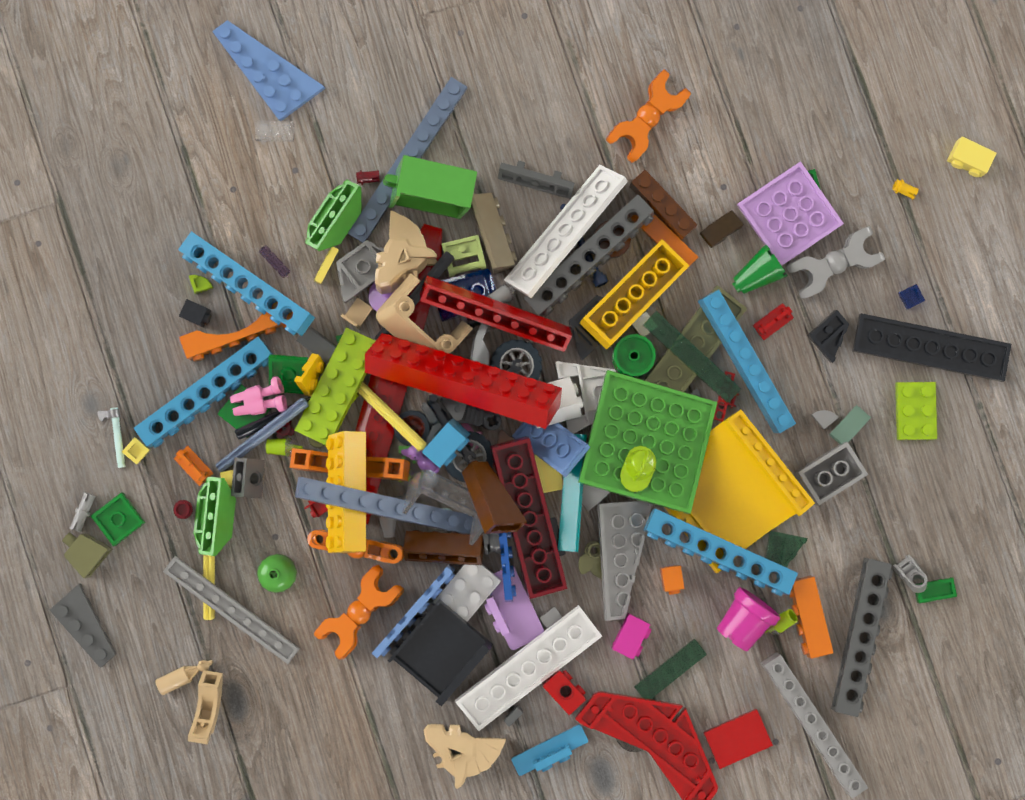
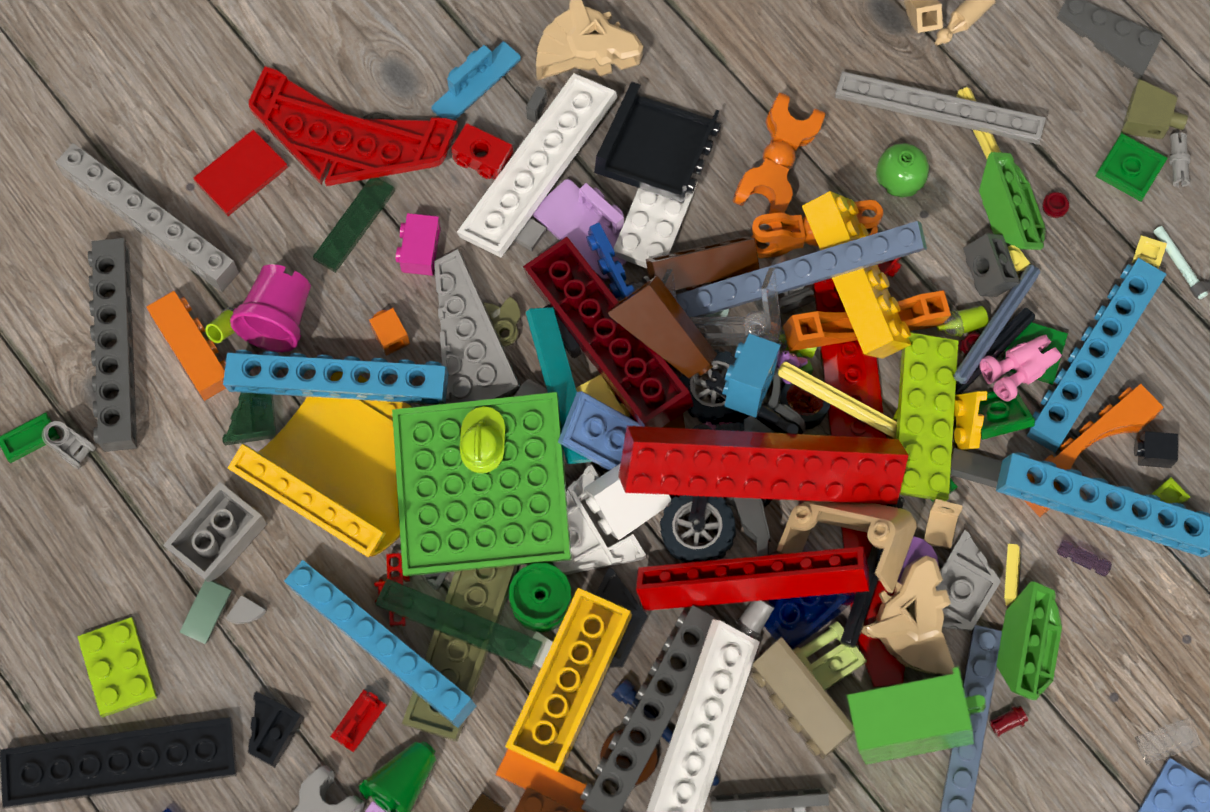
camera: 160 degrees right, 15 degrees down
(193, 465) = (1067, 261): orange hinge -> none
(421, 604) = (706, 182): medium blue wing -> none

